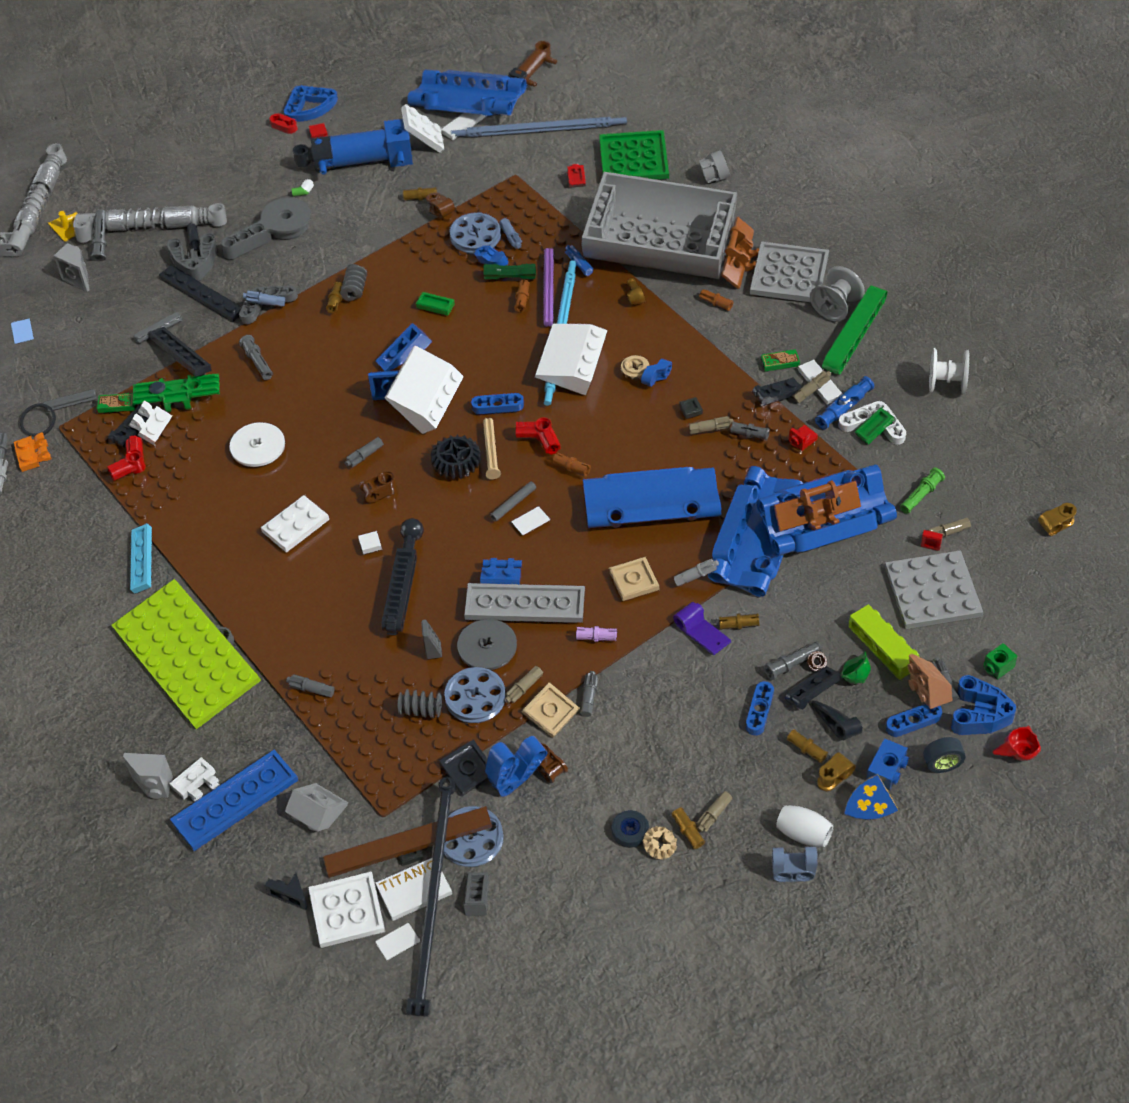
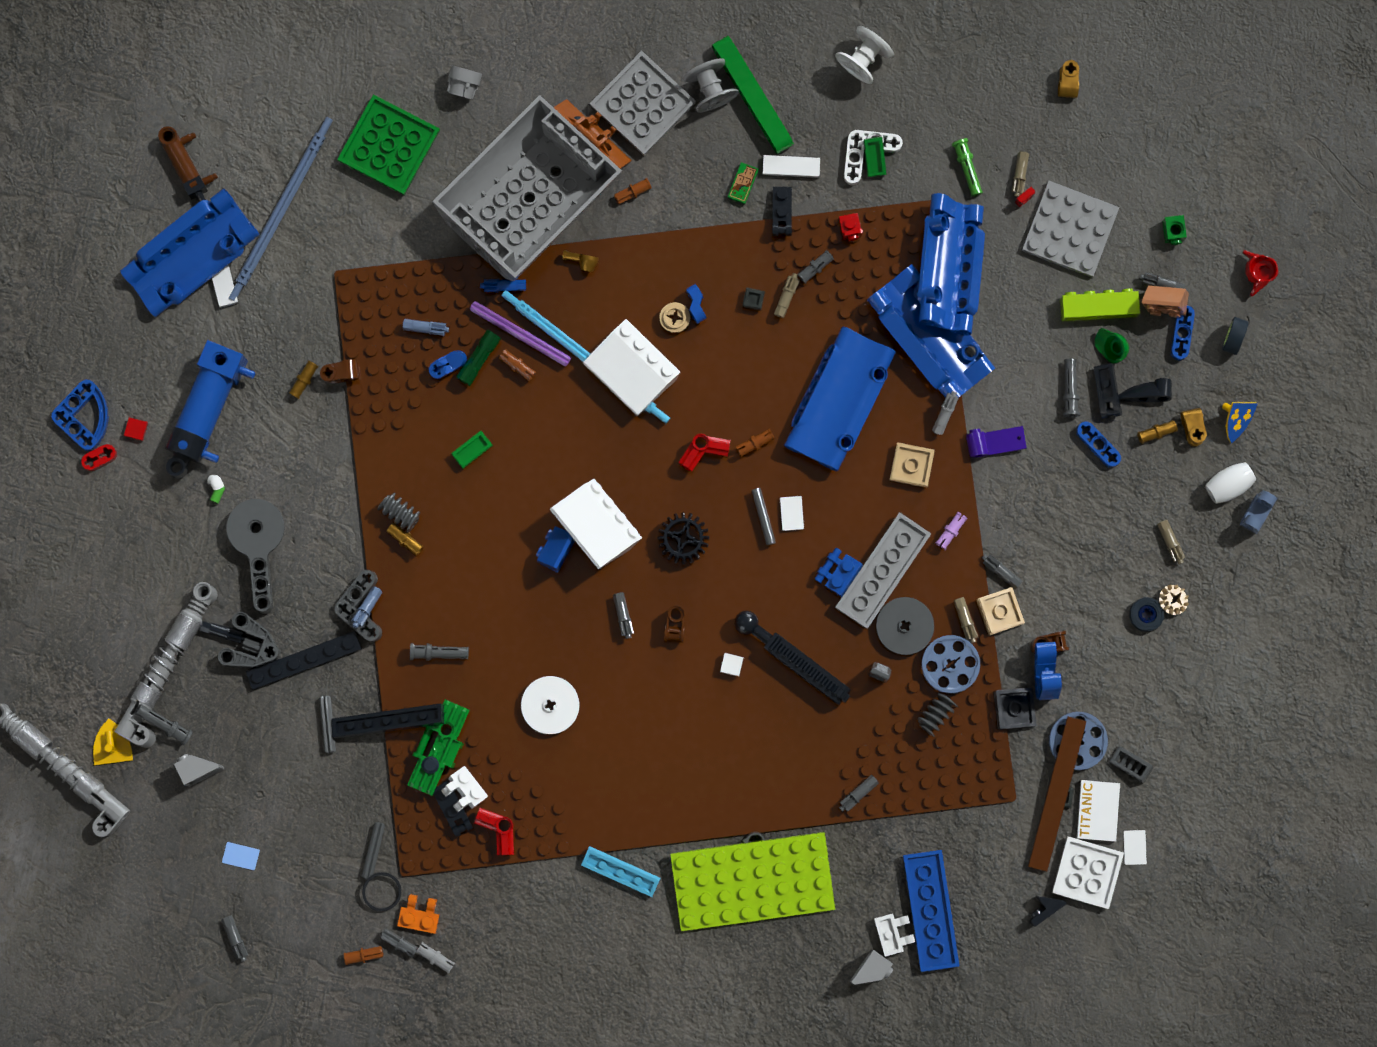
camera: 65 degrees left, 30 degrees up
(115, 403) = (411, 809): tile -> none
(295, 523) = (667, 718): white plate -> none
(315, 806) = (979, 848): light grey slope -> none
(402, 346) = (519, 512): blue slope -> none
(422, 128) = (221, 328): white plate -> none
(430, 915) = (1198, 858): black hinge -> none
(479, 228) = (395, 352): sand blue wedge -> none
(493, 471) = (689, 501): tan axle -> none
(510, 407) = (641, 449): blue beam -> none
(576, 175) = (380, 216): red bracket -> none
(688, 828) = (1174, 570): pearl gold pin -> none
(739, 621) = (1006, 406): pearl gold pin -> none
(816, 383) = (798, 179): dark tan piece -> none
(821, 511) = (954, 268): dark orange piece -> none
(821, 658) = (1088, 370): plate -> none
(844, 402) = (828, 150): blue piece -> none
(891, 754) = (1211, 393): blue brick -> none
(991, 711) = (1219, 286): blue connector -> none

